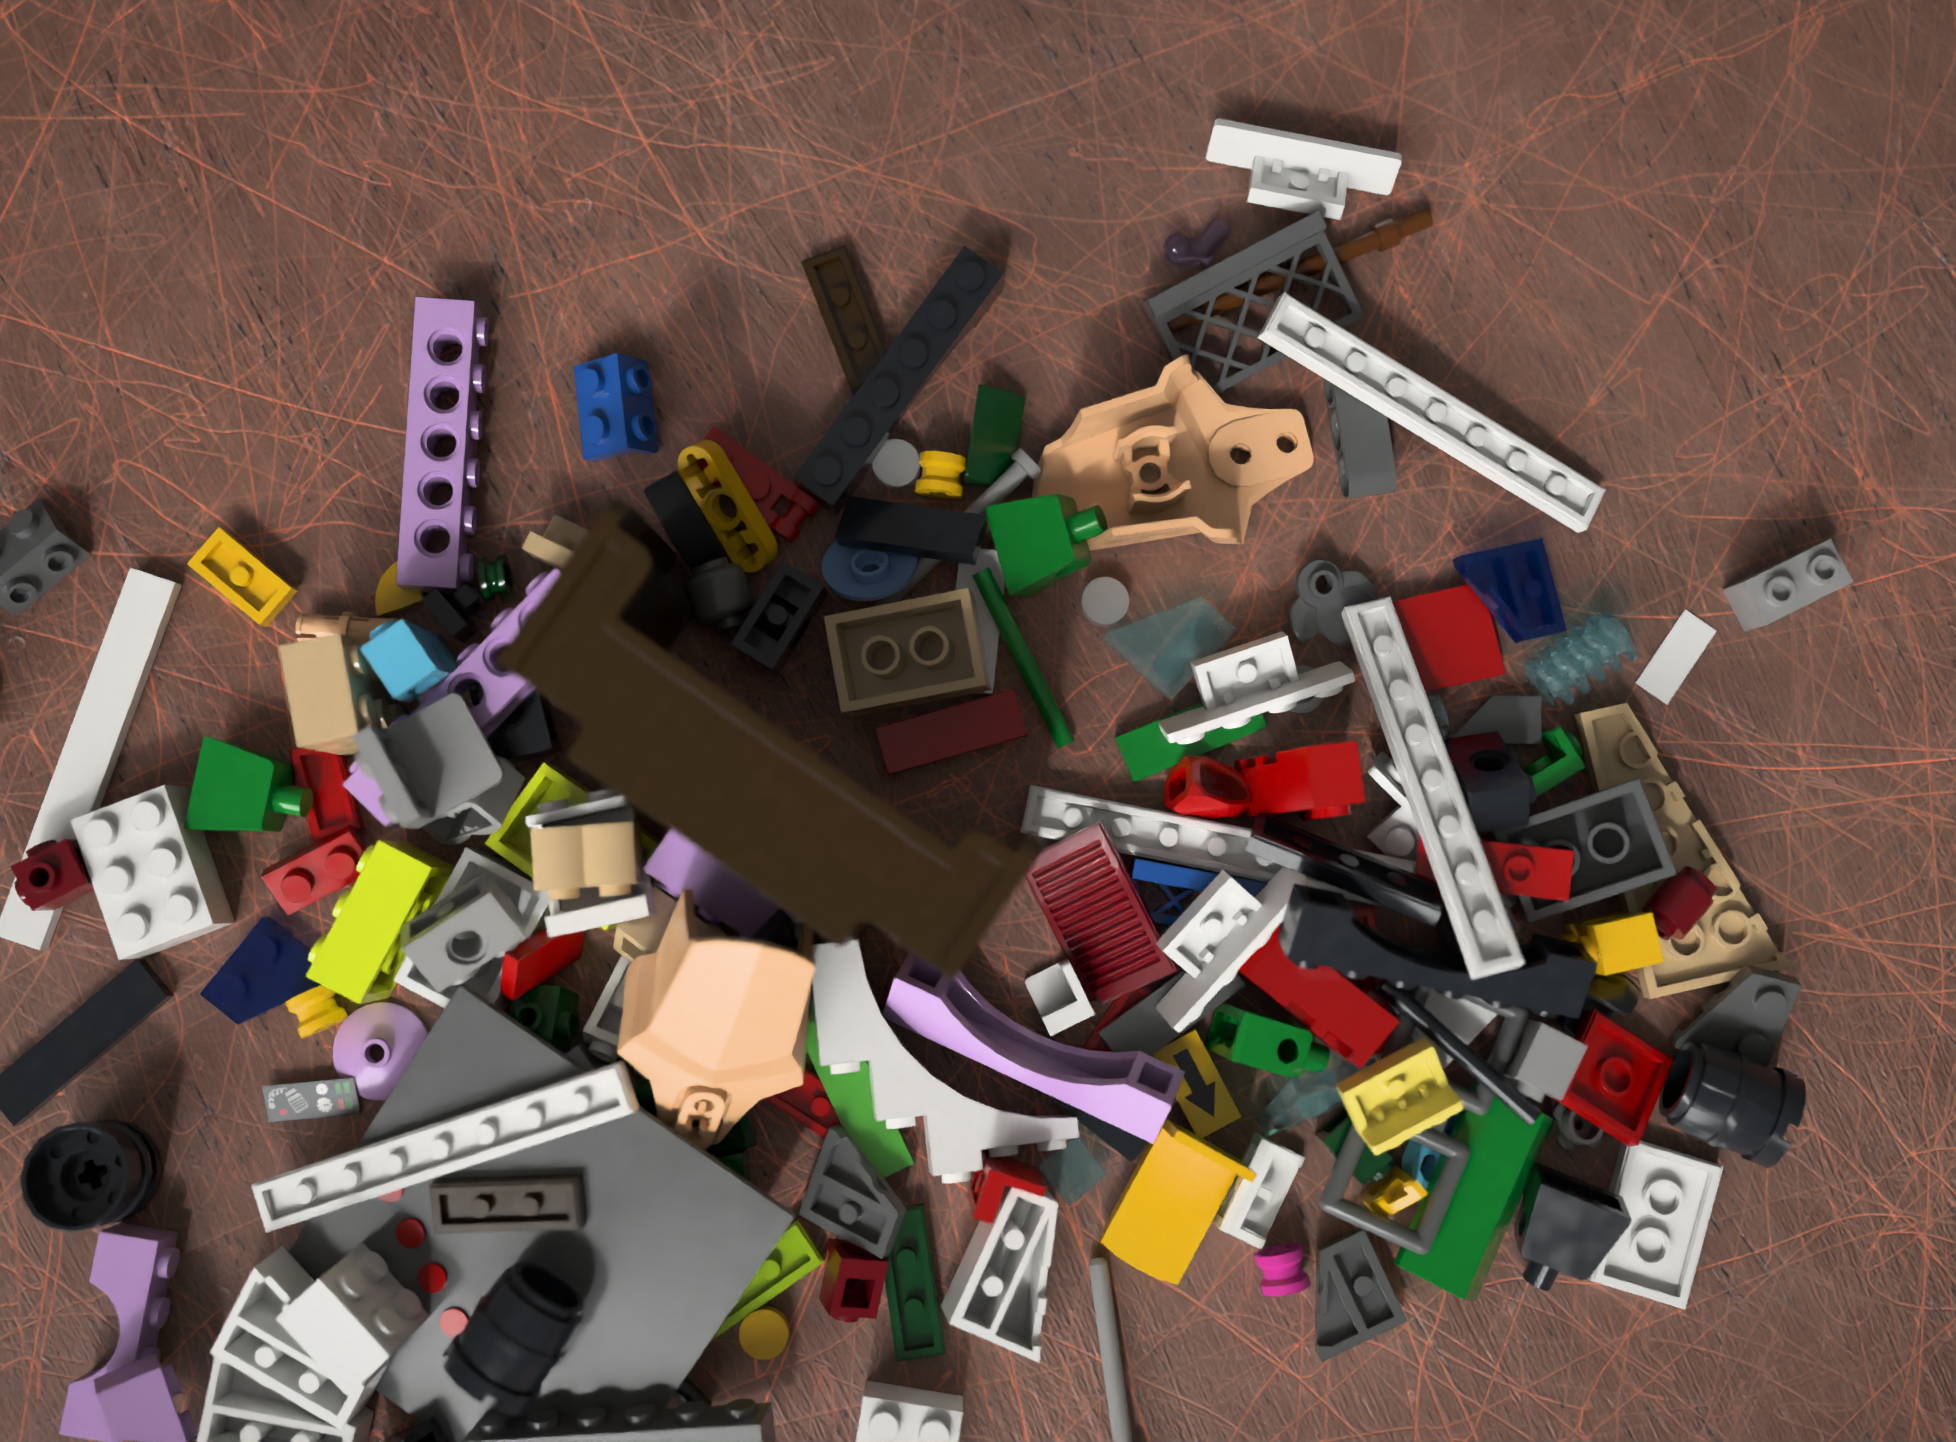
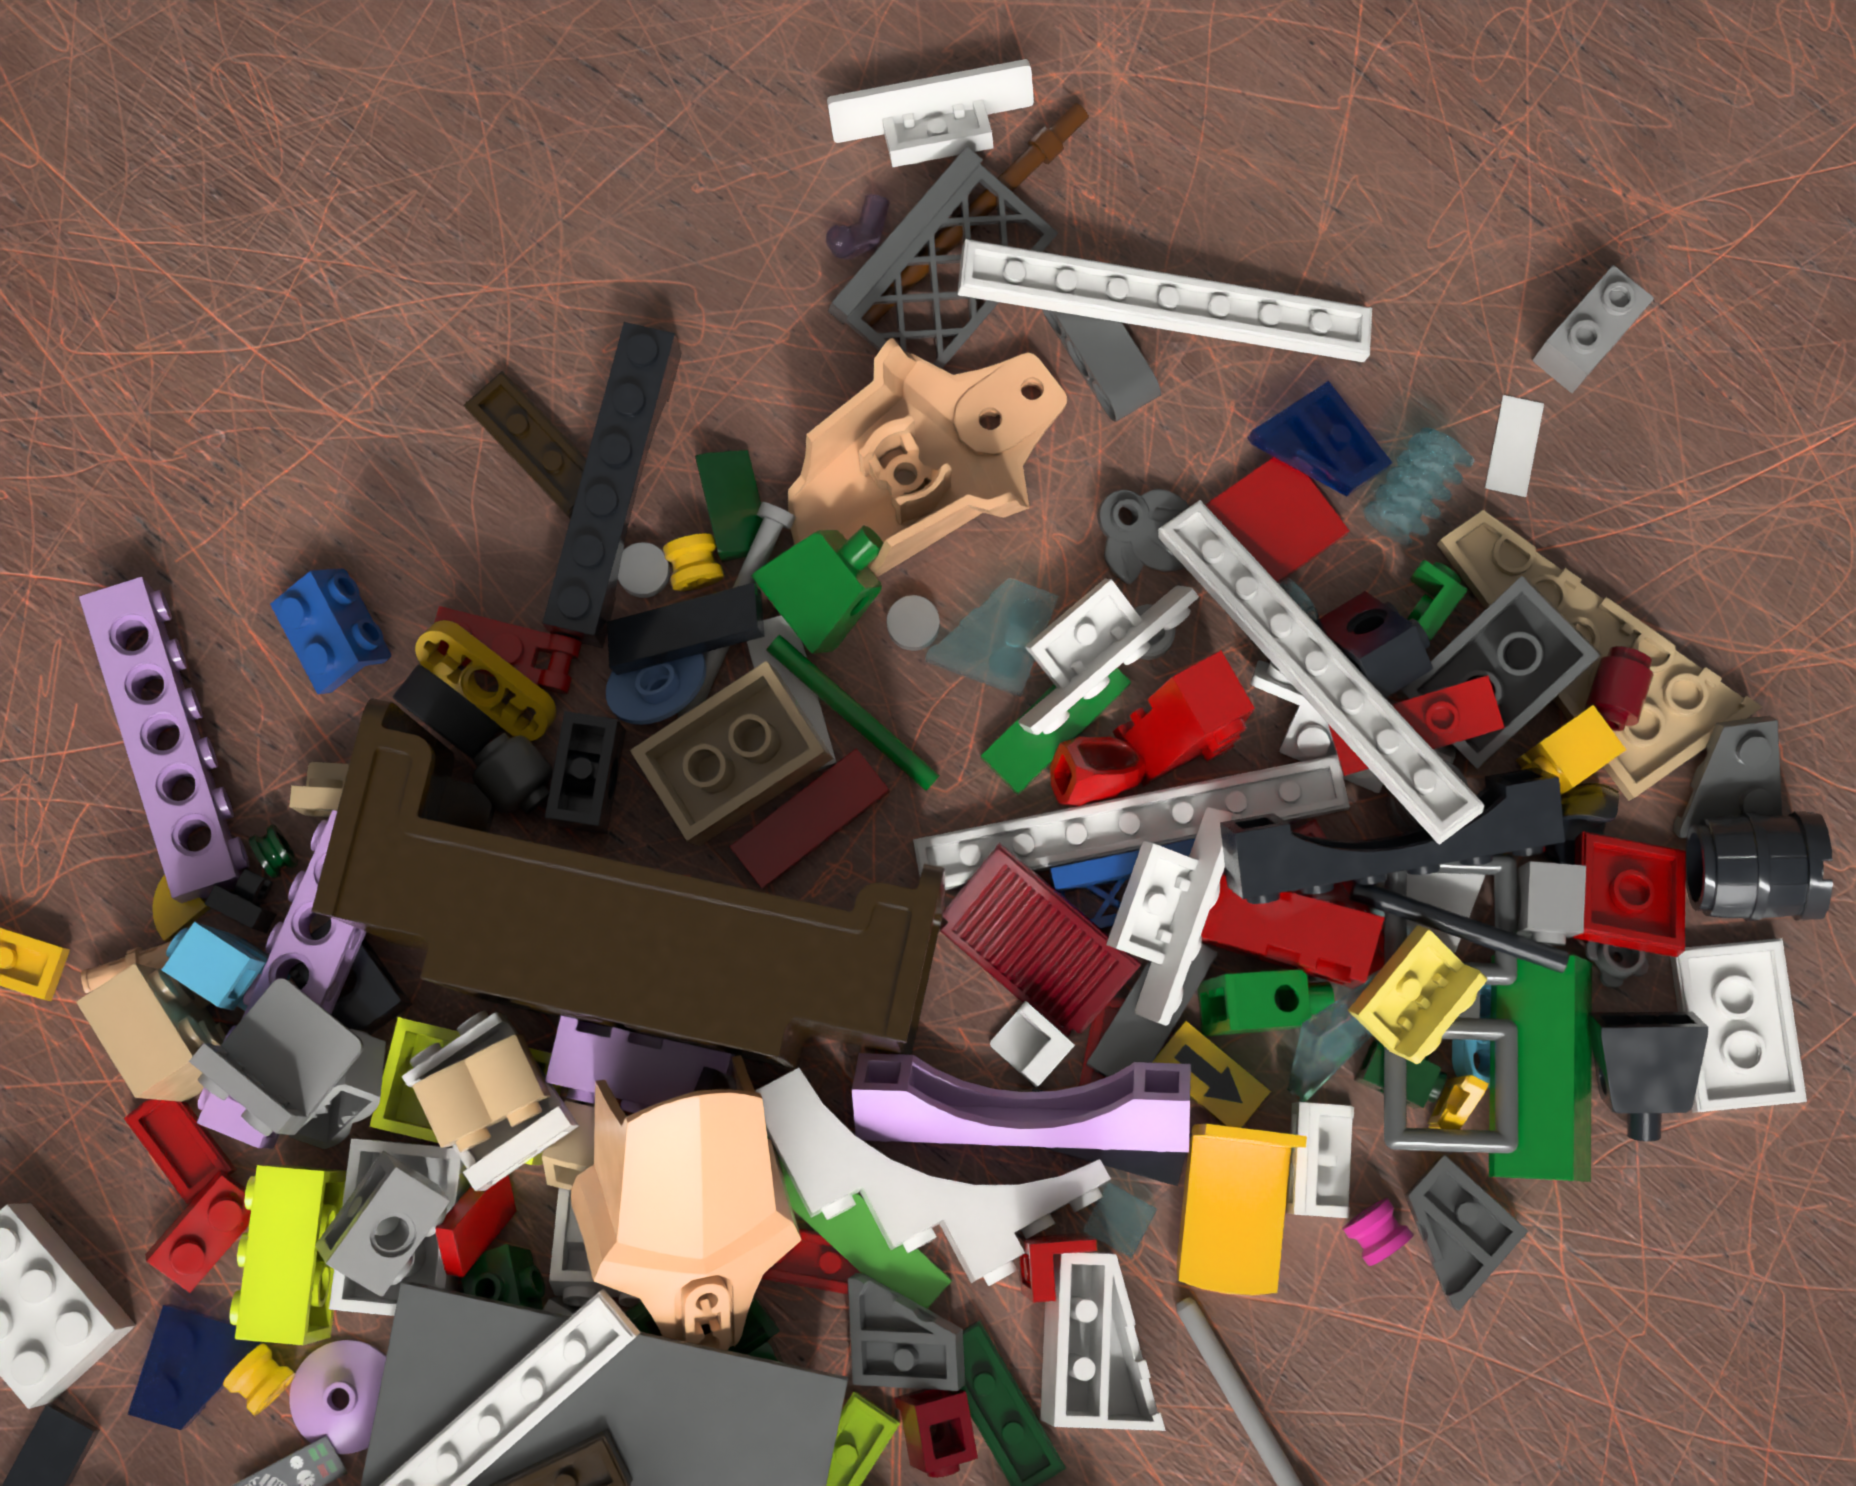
camera: 15 degrees left, 5 degrees down
(243, 790) = (92, 1180): green torso -> none
(1345, 869) = (1267, 788): black tile -> none
(1512, 716) = (1377, 571): dark grey tile -> none

